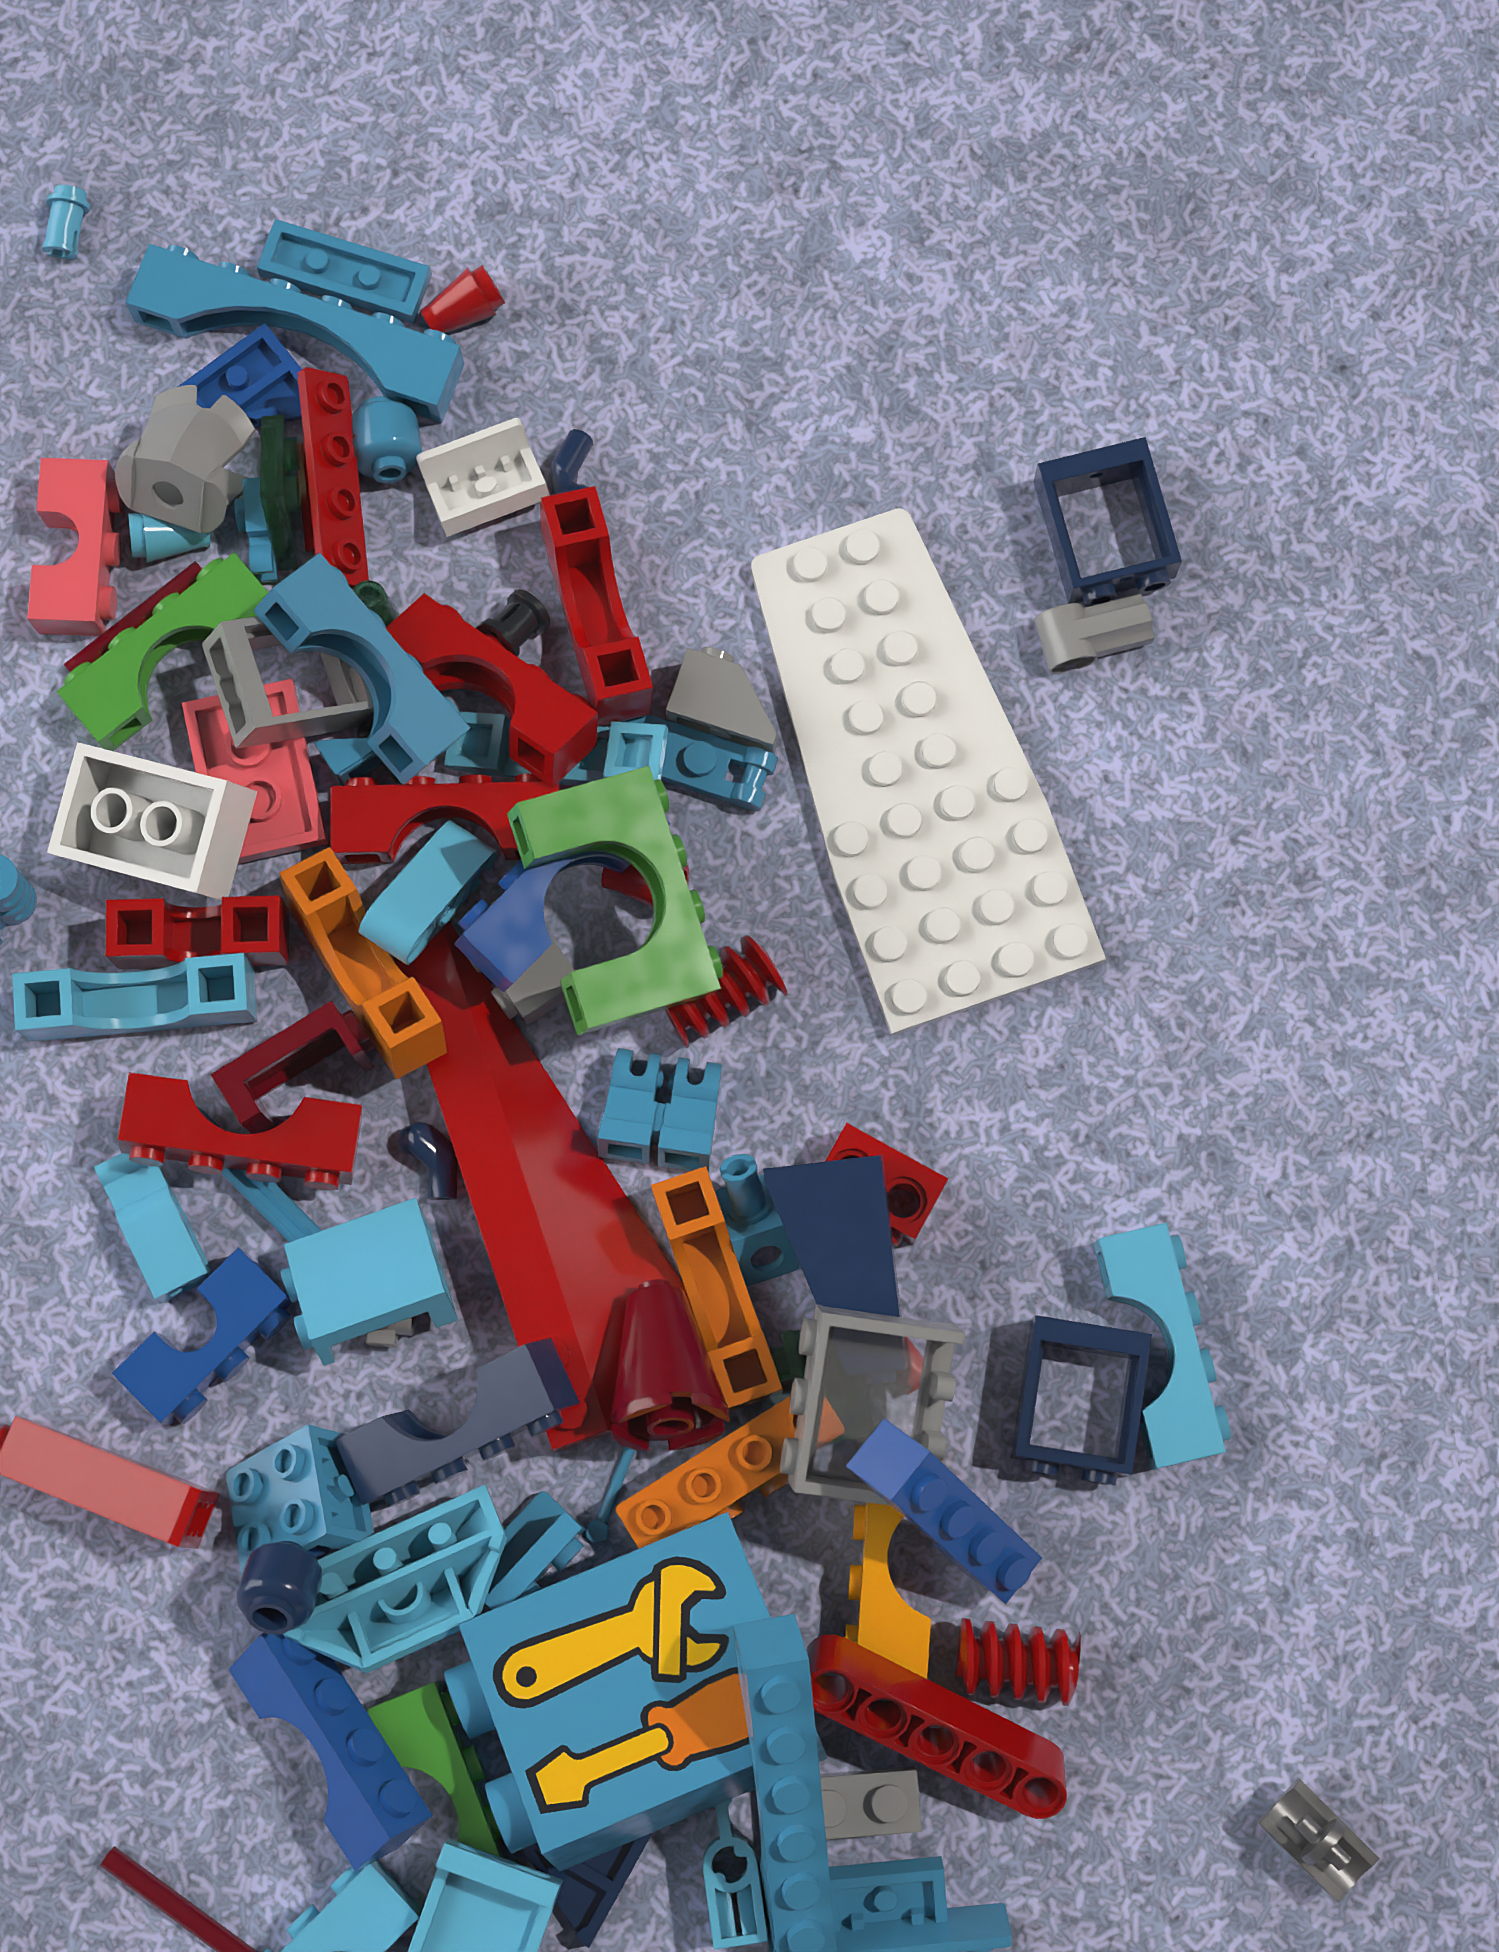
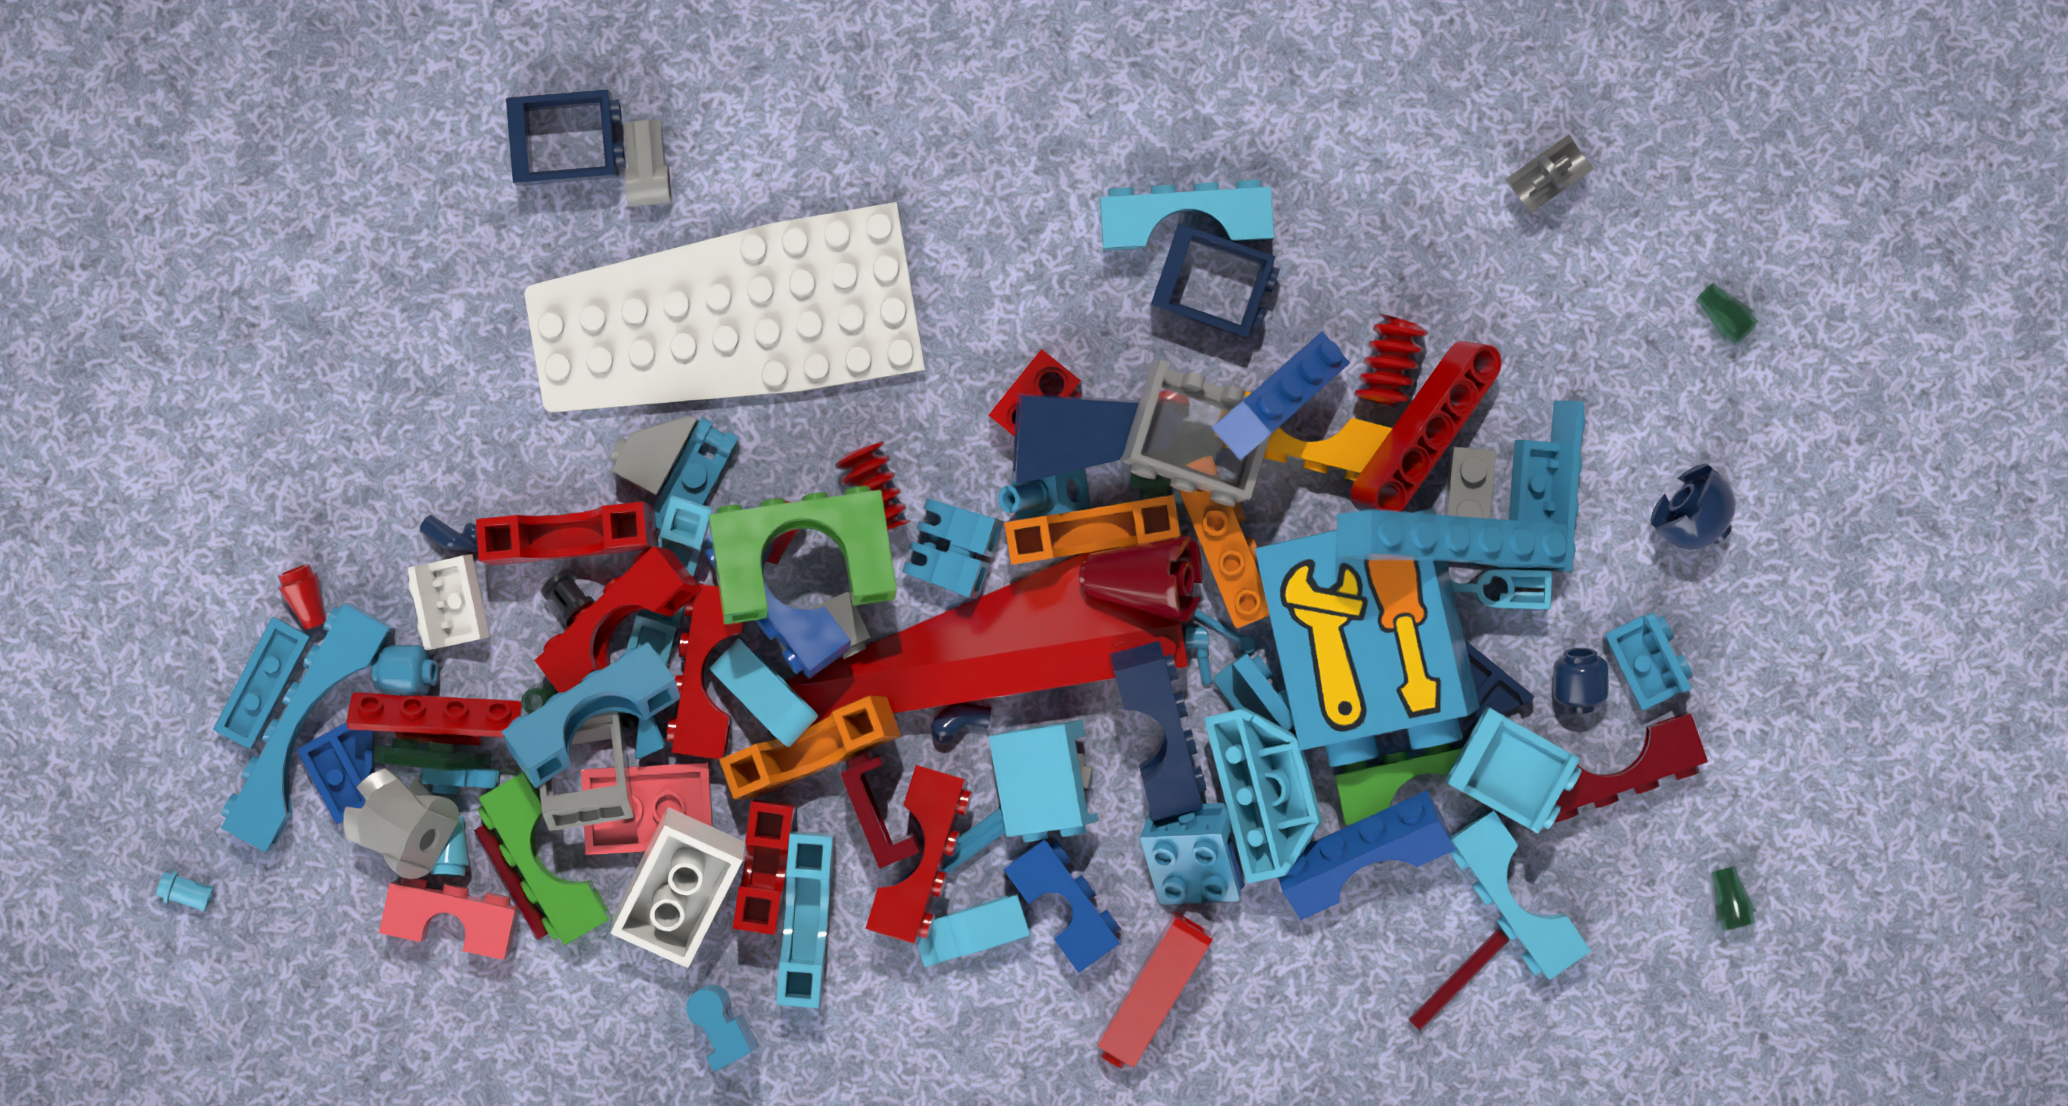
camera: 80 degrees left, 10 degrees up
(279, 1587) = (1252, 872): dark blue head -> none
(594, 1461) = (1197, 638): none -> dark azure hand

